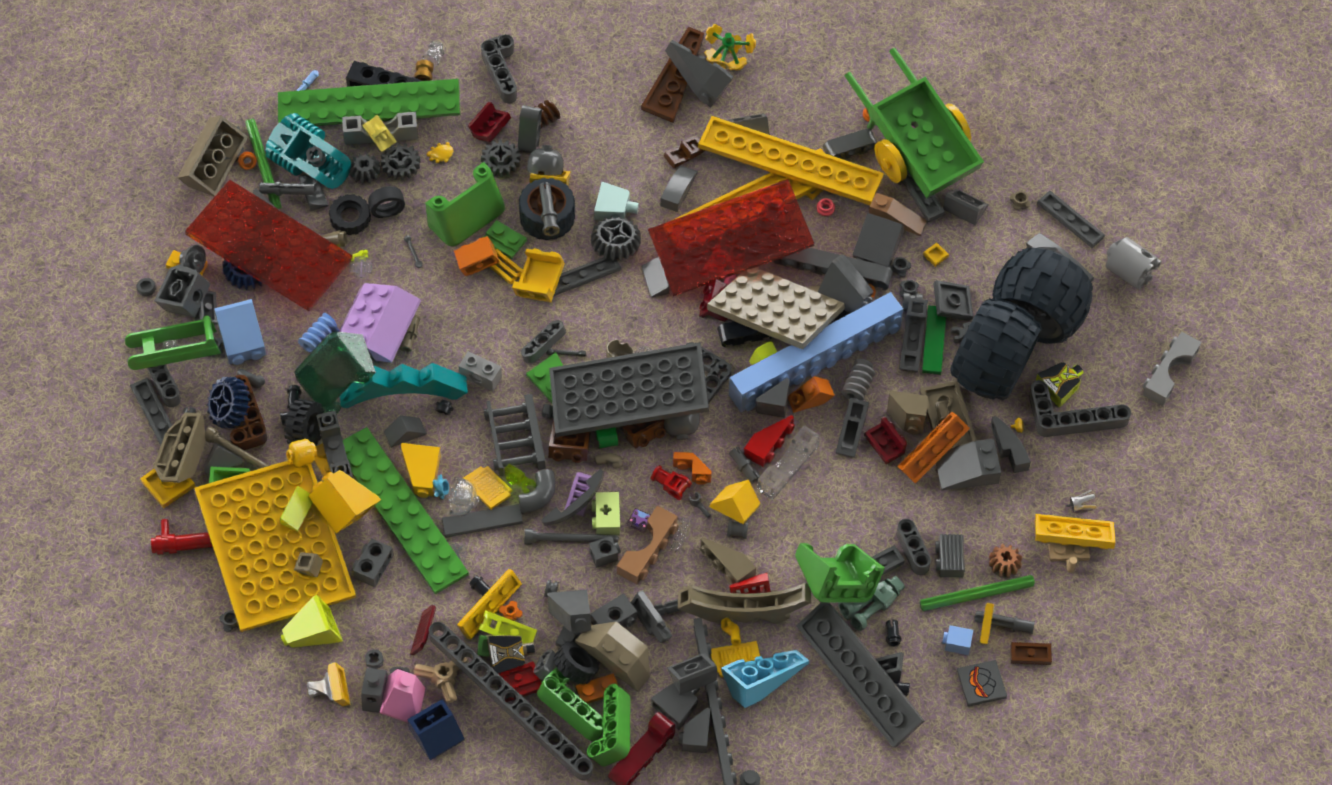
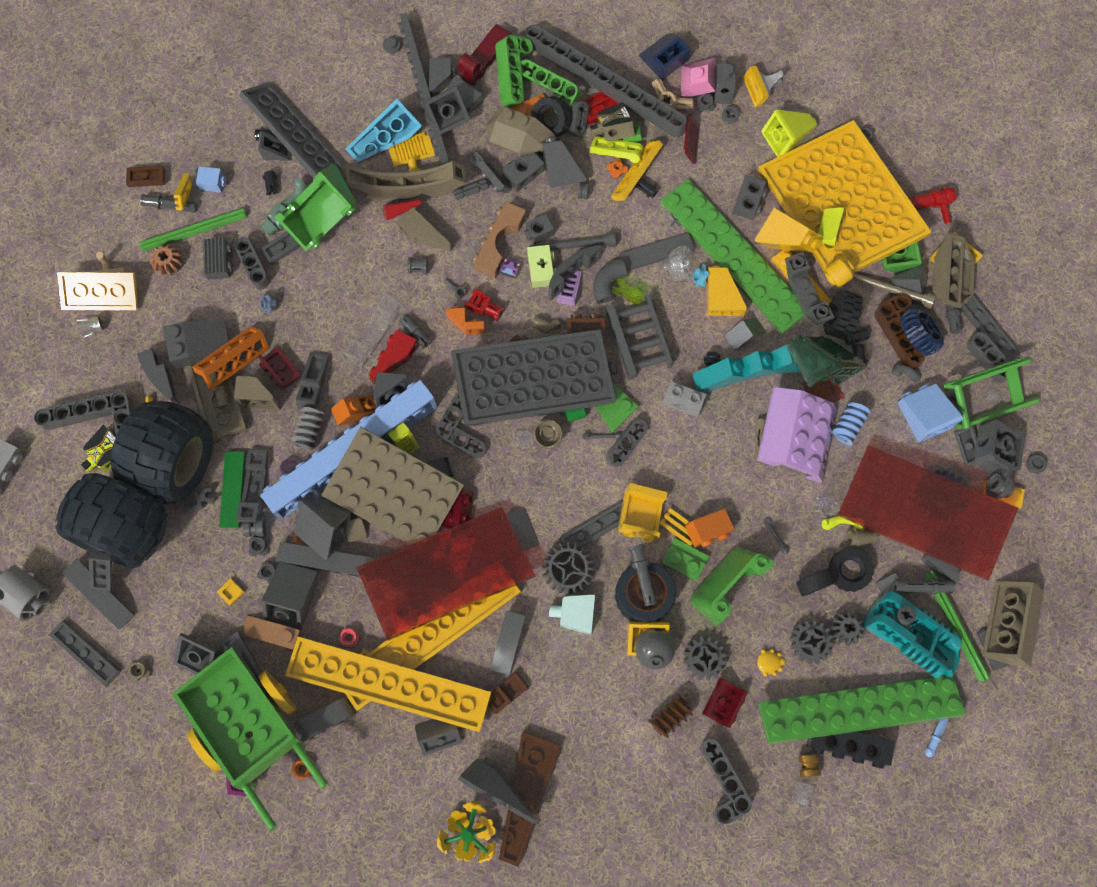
camera: 175 degrees right, 15 degrees up
(247, 166) = (974, 625): orange plate -> none
(308, 564) = (807, 181): dark tan slope -> none
(379, 133) = (842, 662): light yellow hips -> none
(401, 127) = (843, 678): light grey arch -> none
(489, 486) = (657, 284): yellow window -> none
(529, 128) = (679, 687): dark grey beam -> none
(737, 501) = (421, 287): yellow slope -> none
(878, 352) = (288, 466): none -> clear purple plate
(897, 505) = (267, 303): none -> sand blue plate
(953, 300) = (212, 533): dark grey plate -> none
(981, 683) = (191, 148): dark grey tile -> none

